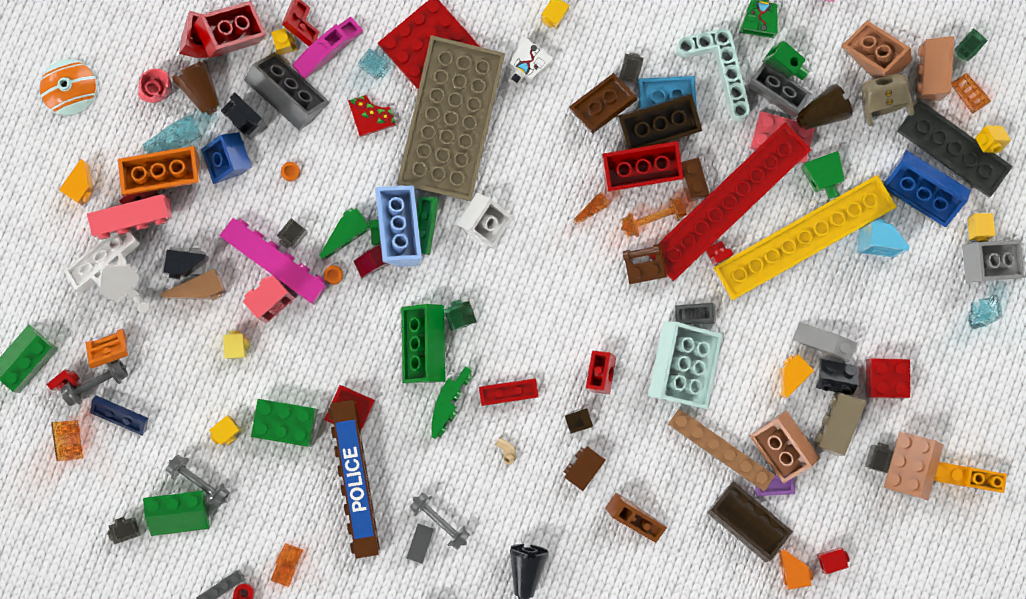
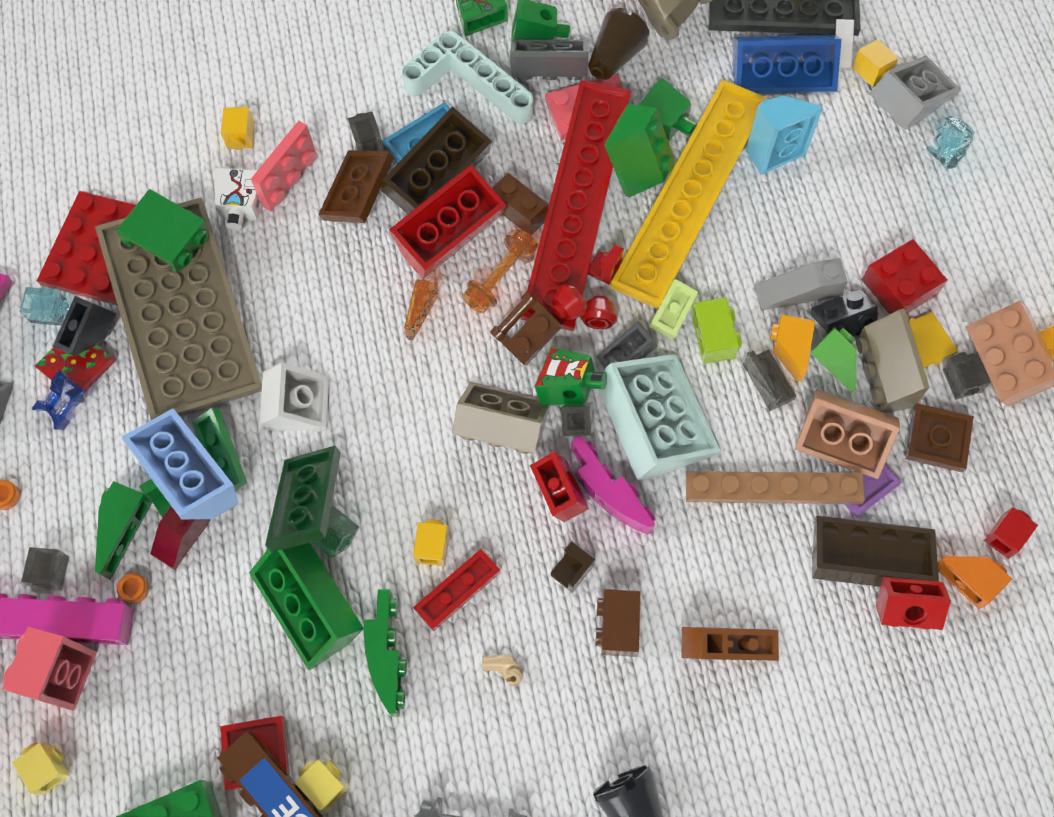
camera: 25 degrees left, 15 degrees down
(359, 131) = (65, 388): none -> clear blue piece
(375, 448) = (321, 783): none -> light yellow brick
(389, 95) = (83, 326): none -> black slope
(456, 289) = (303, 499): none -> dark green plate
(470, 67) = (164, 230): none -> green panel
(510, 356) = (431, 543): none -> yellow brick
(567, 63) = (284, 166): none -> coral plate
(596, 308) = (500, 418): none -> slope
(629, 399) = (616, 496): none -> dark pink slope
(637, 339) = (577, 419): none -> clear smoke brick
(647, 312) = (567, 378): none -> green torso
(678, 267) = (568, 303): none -> red cone
(694, 281) = (600, 313): none -> red cone
(739, 307) = (673, 309): none -> yellowish green plate
(748, 562) = (913, 603): none -> red brick
(754, 336) = (715, 330): none -> lime brick
(765, 385) = (768, 379): none -> clear smoke panel
(786, 197) = (639, 149): none -> green slope
(811, 400) = (838, 356): none -> bright green slope
(835, 483) = (939, 437): none -> reddish brown plate
(874, 422) = (931, 339): none -> yellow piece
(975, 197) = (845, 31): none -> white sticker

